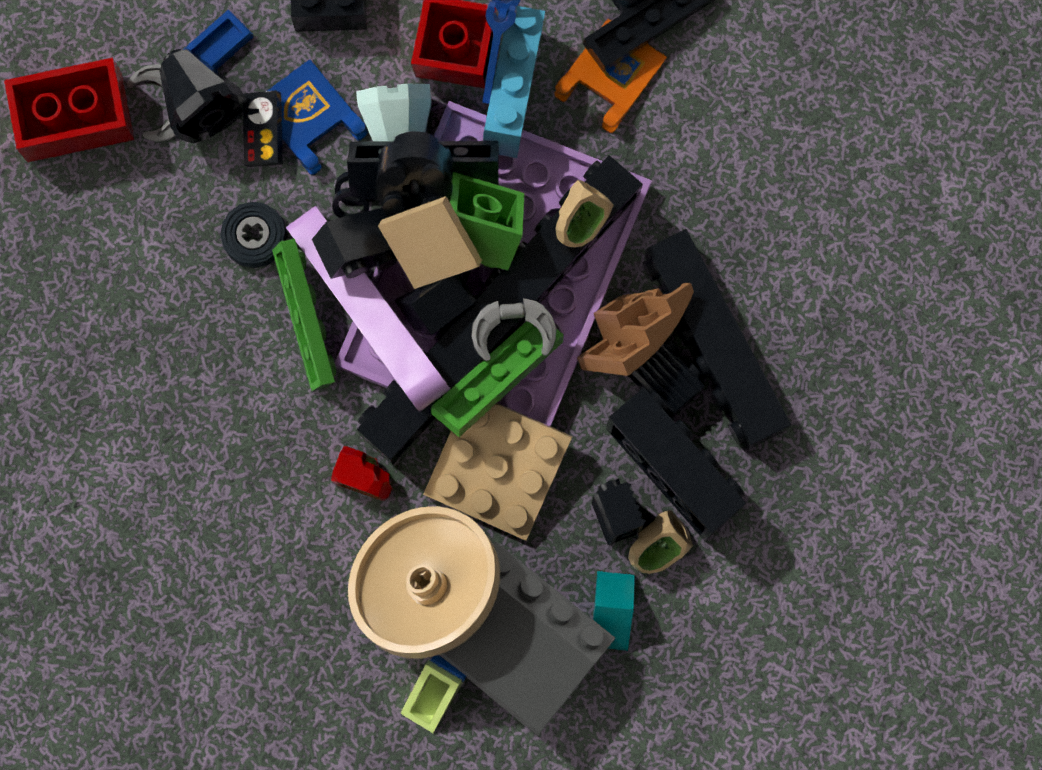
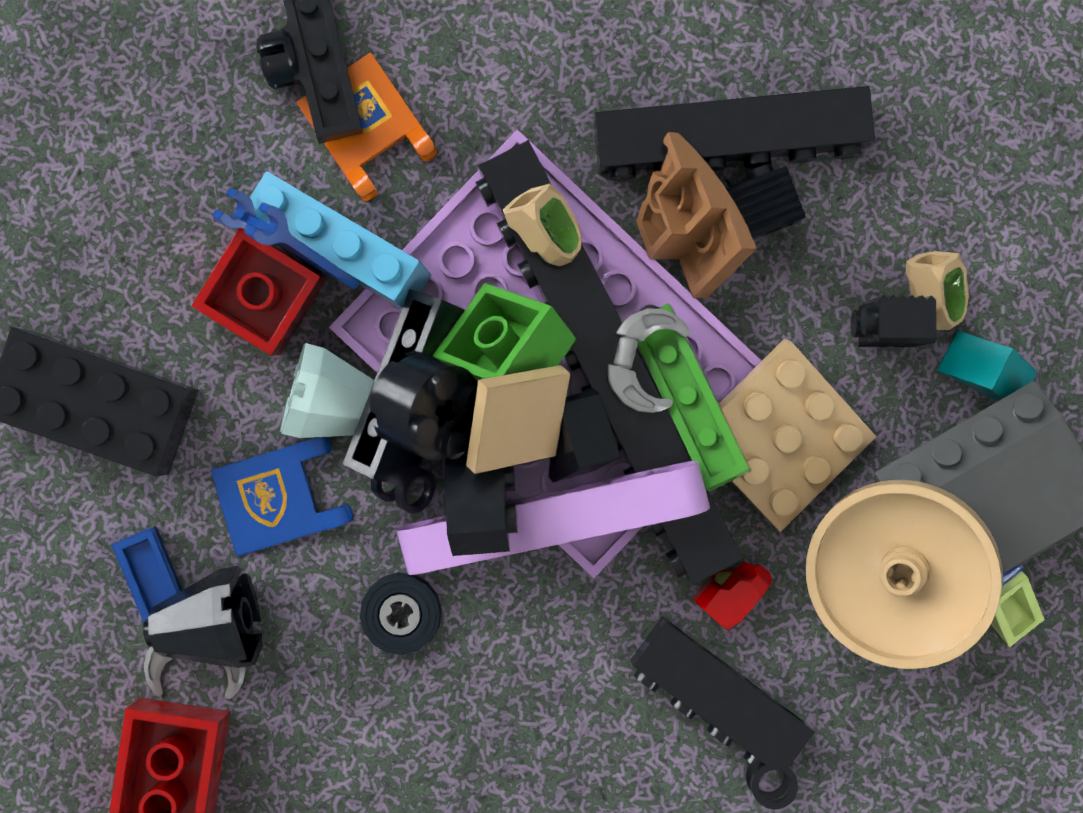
camera: 75 degrees left, 10 degrees up
(262, 129) = (276, 557): tile -> none
(276, 500) = (728, 702): none -> black hinge
(301, 301) = (506, 590): bright green plate -> none
(675, 463) = (871, 233): black brick -> none

